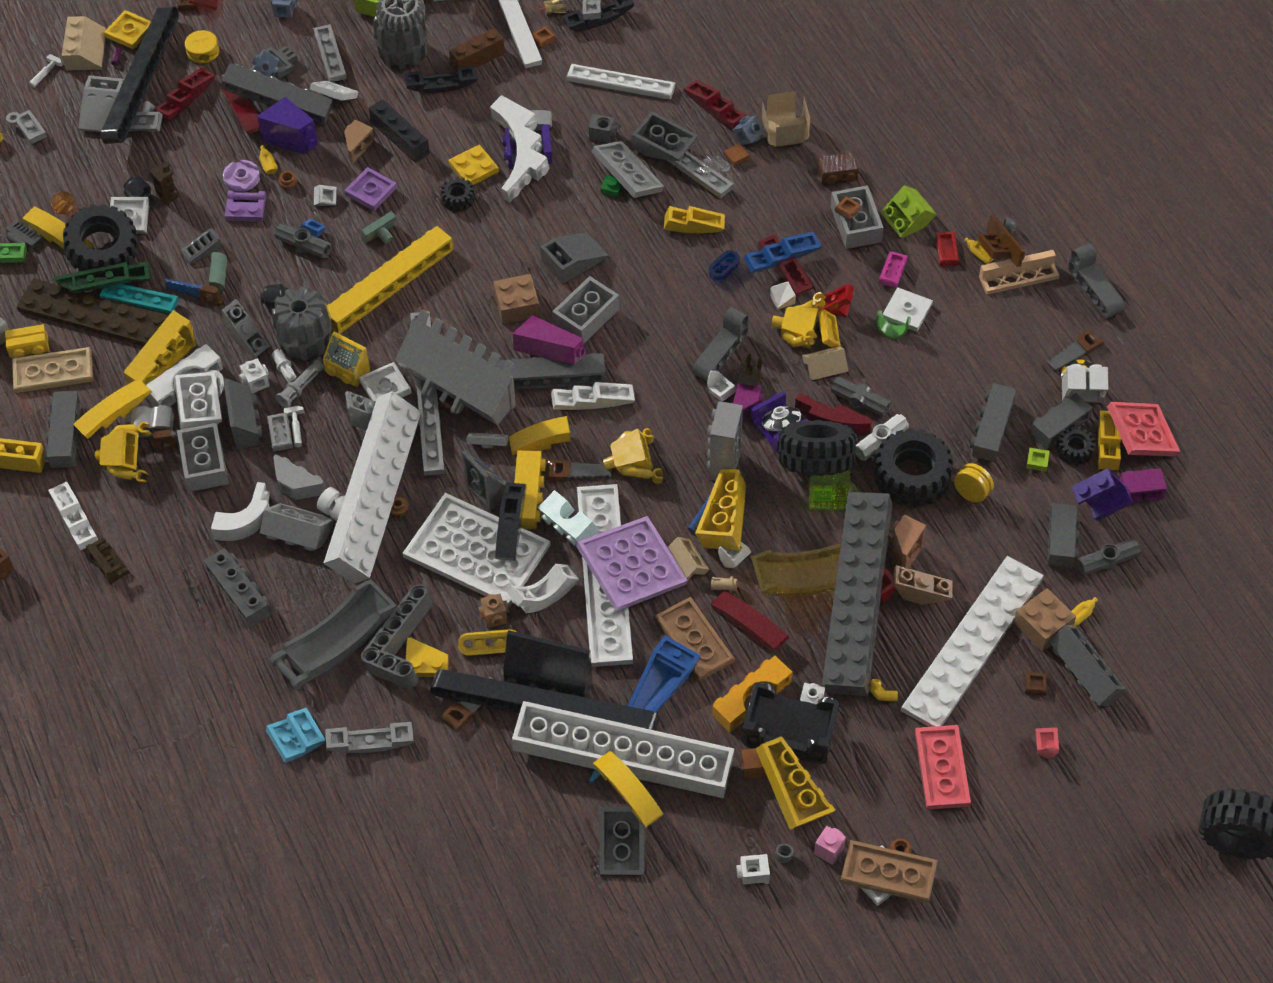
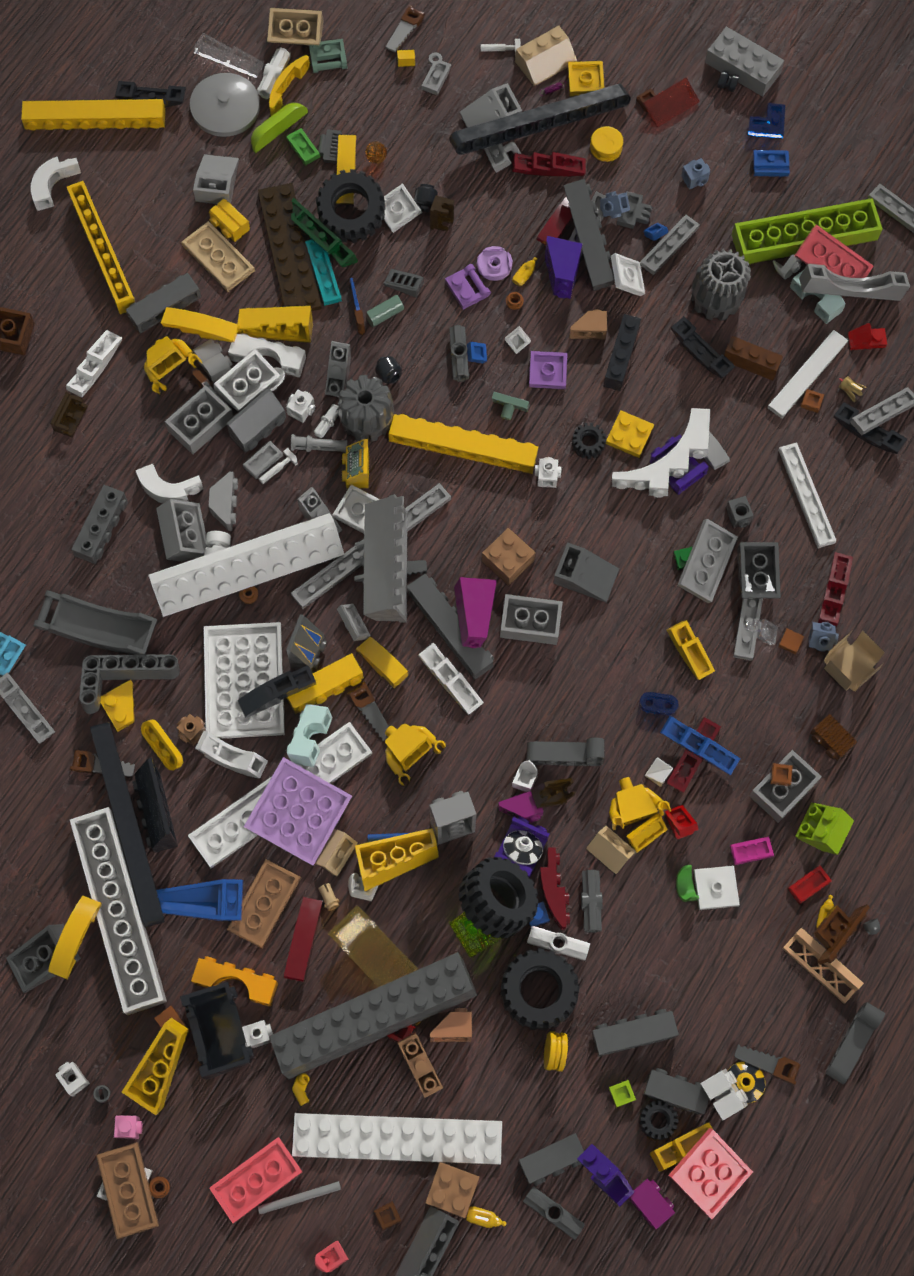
camera: 55 degrees right, 15 degrees up
(310, 55) = (655, 231): none -> blue tile
(464, 233) = (547, 472): none -> white brick
(972, 770) = (299, 1197): none -> light grey bar

